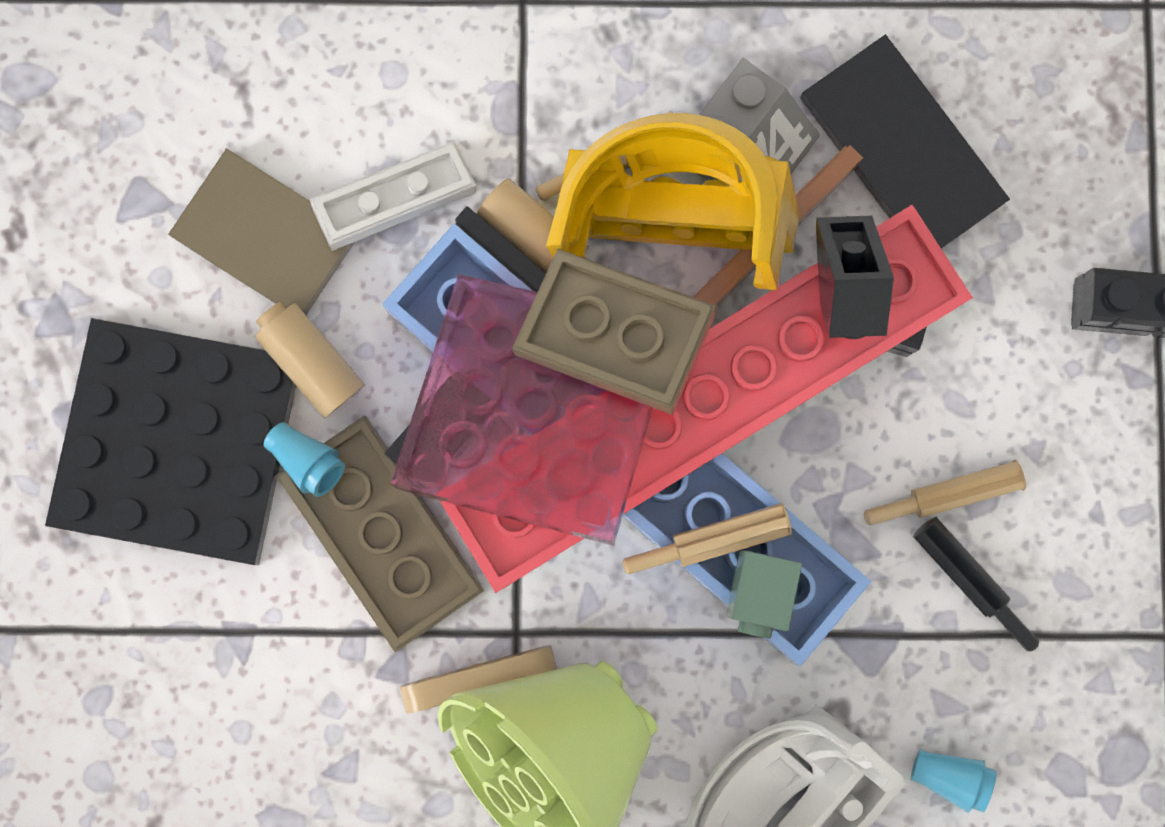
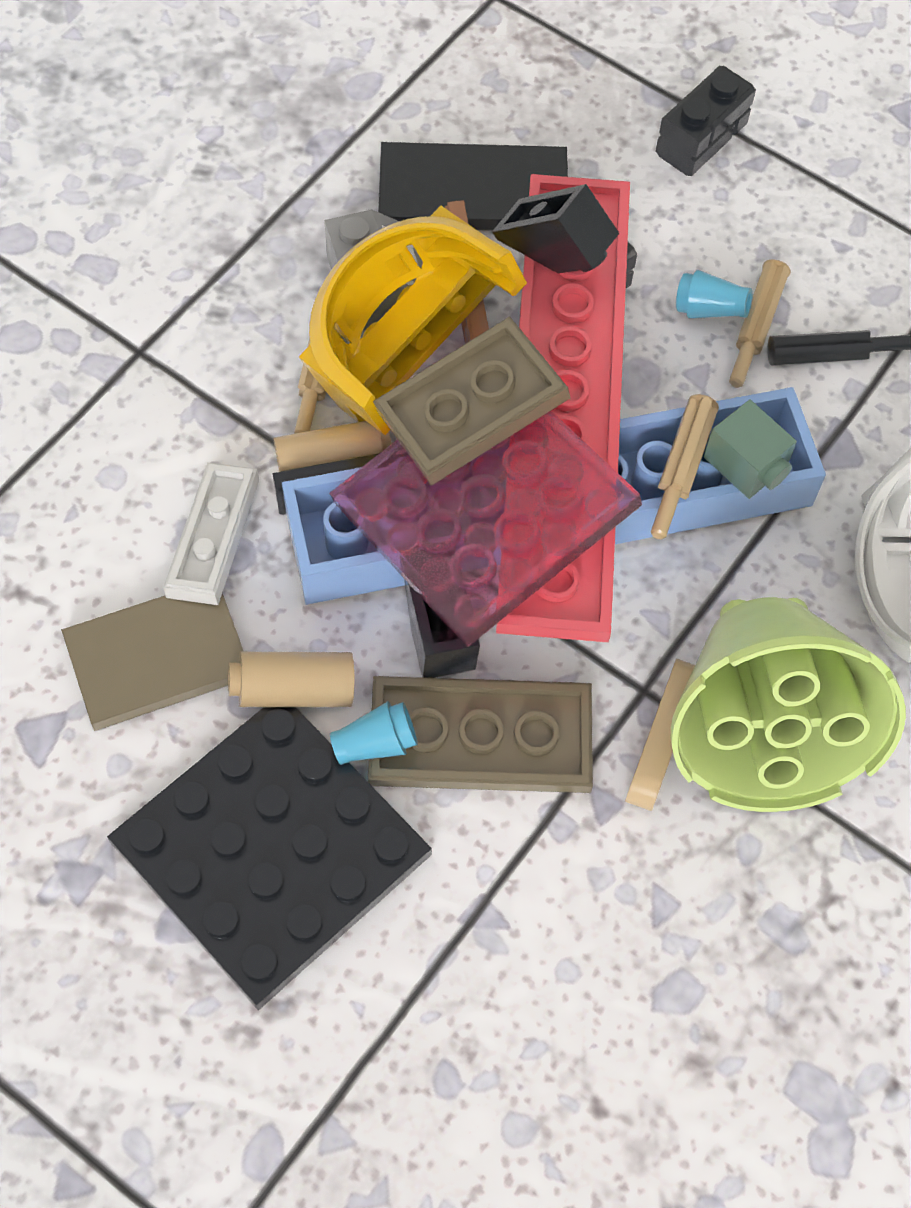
camera: 55 degrees left, 20 degrees down
(937, 440) = (710, 296): none -> medium azure cone

